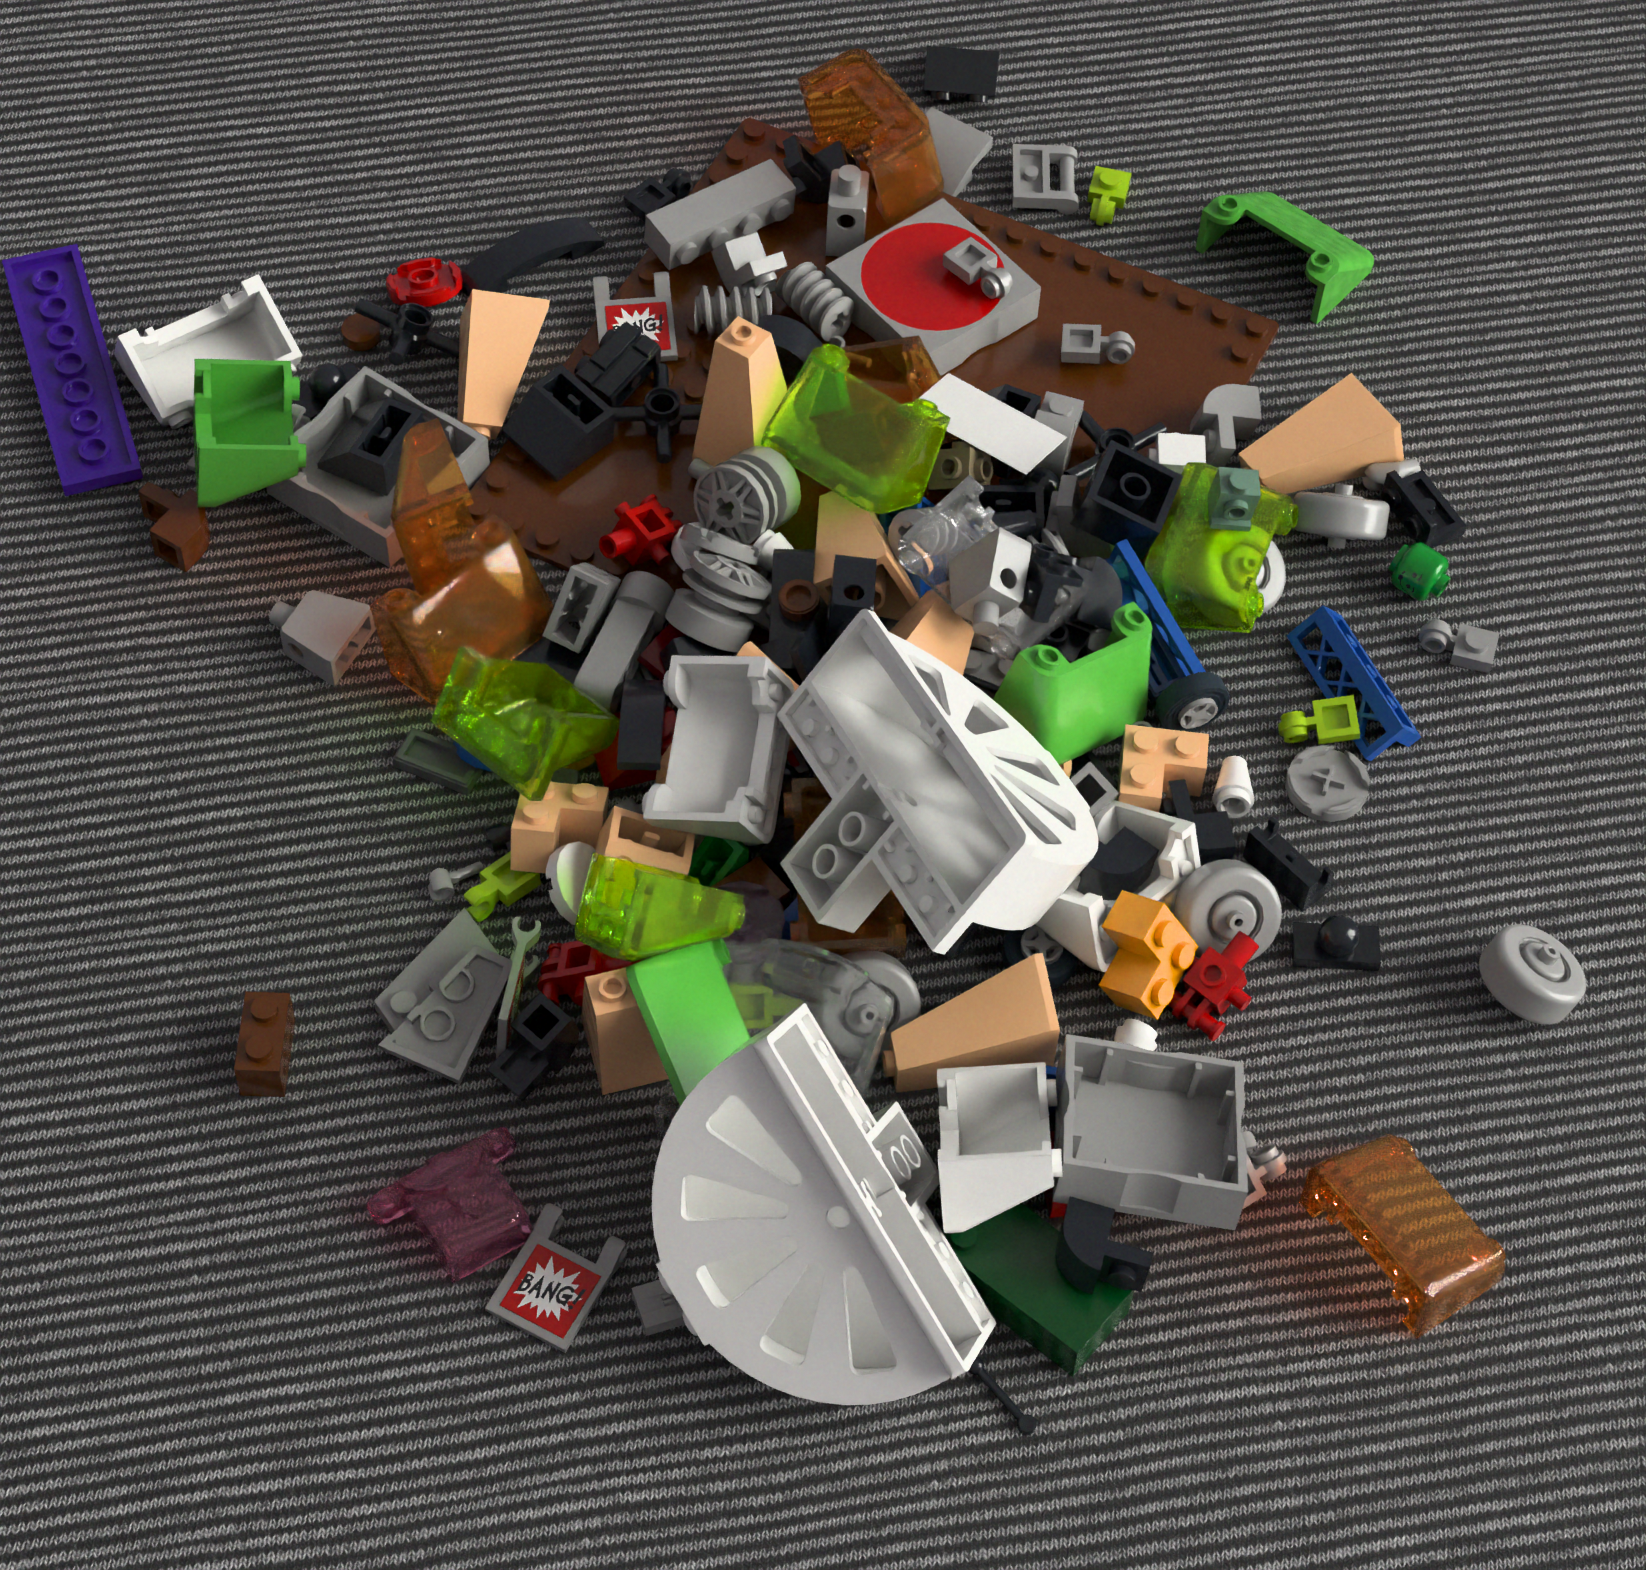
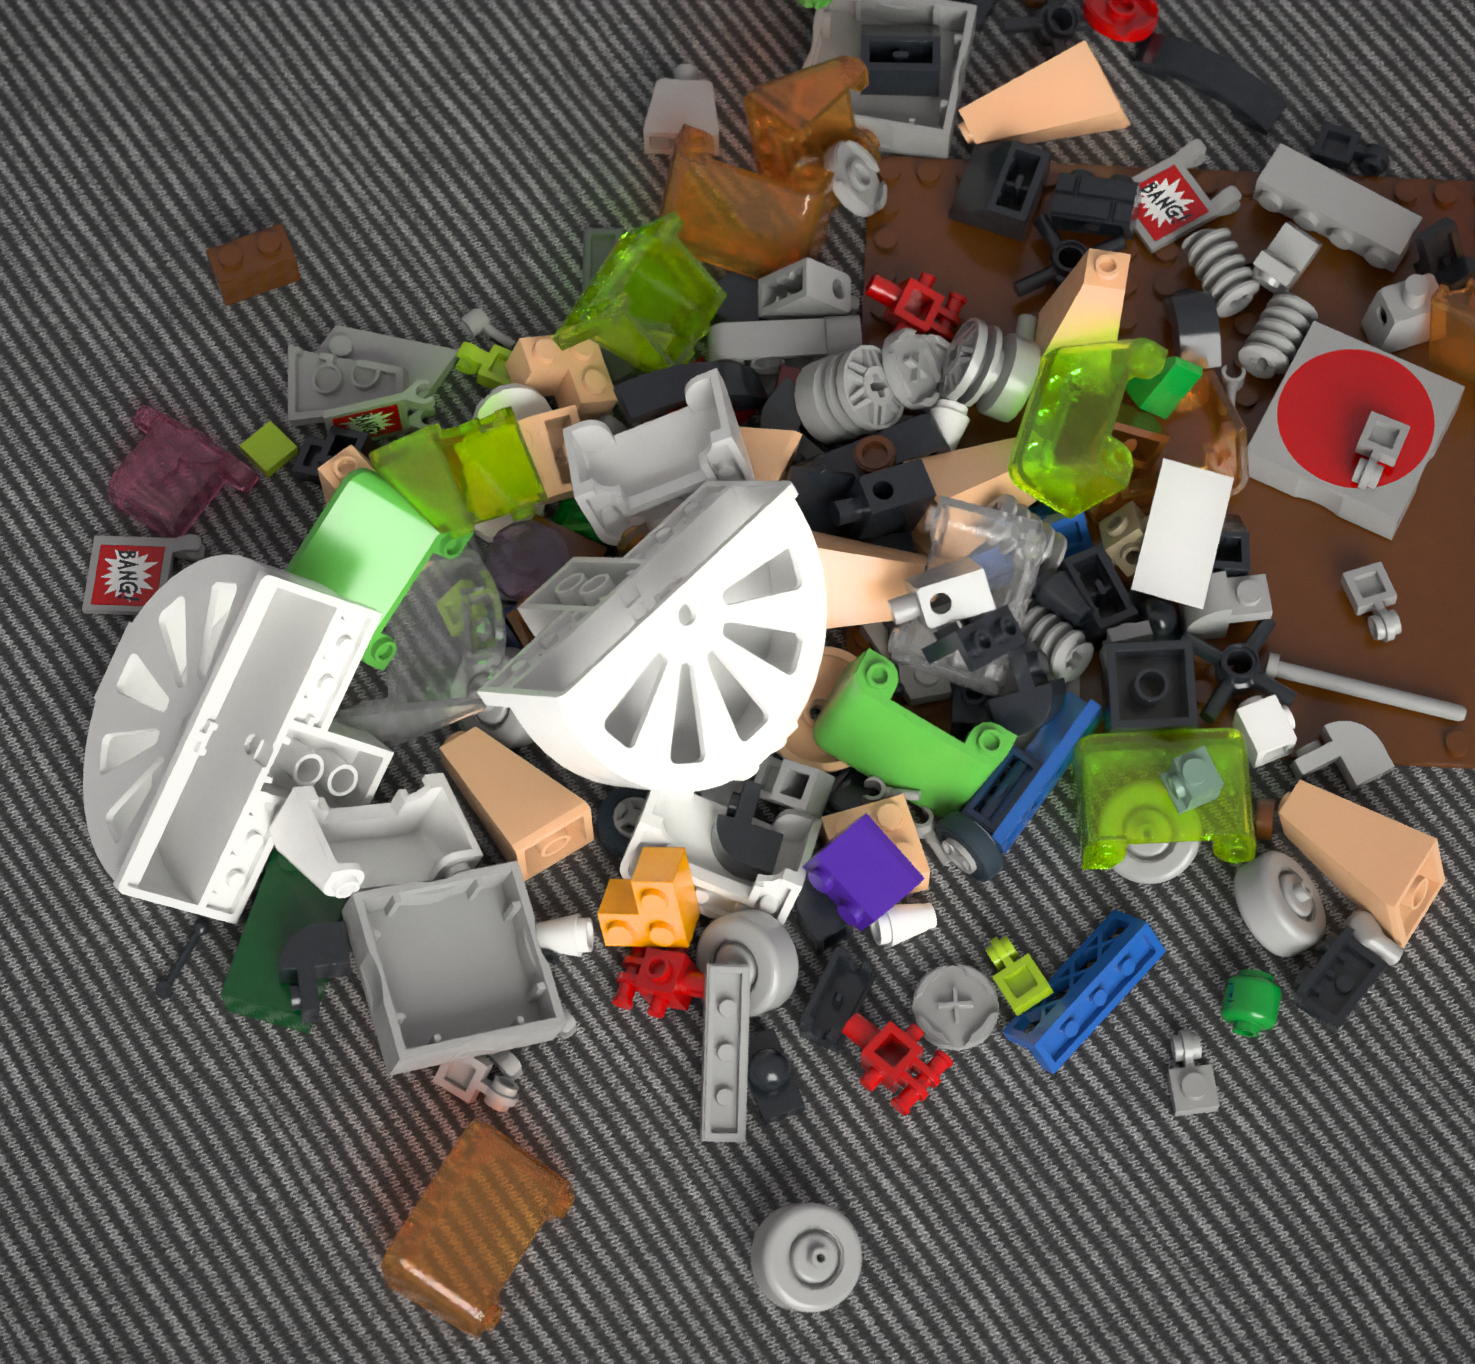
camera: 70 degrees right, 10 degrees up
(474, 516) = (855, 178): none -> light grey tile
(476, 1112) = (269, 449): none -> lime tile
(1108, 745) = (886, 791): none -> light grey hand
(1172, 382) = (1362, 689): none -> light grey bar
(1204, 767) = (862, 872): none -> dark purple slope
(1312, 958) = (725, 1052): none -> light grey tile
(1369, 838) = (891, 1059): none -> red piece

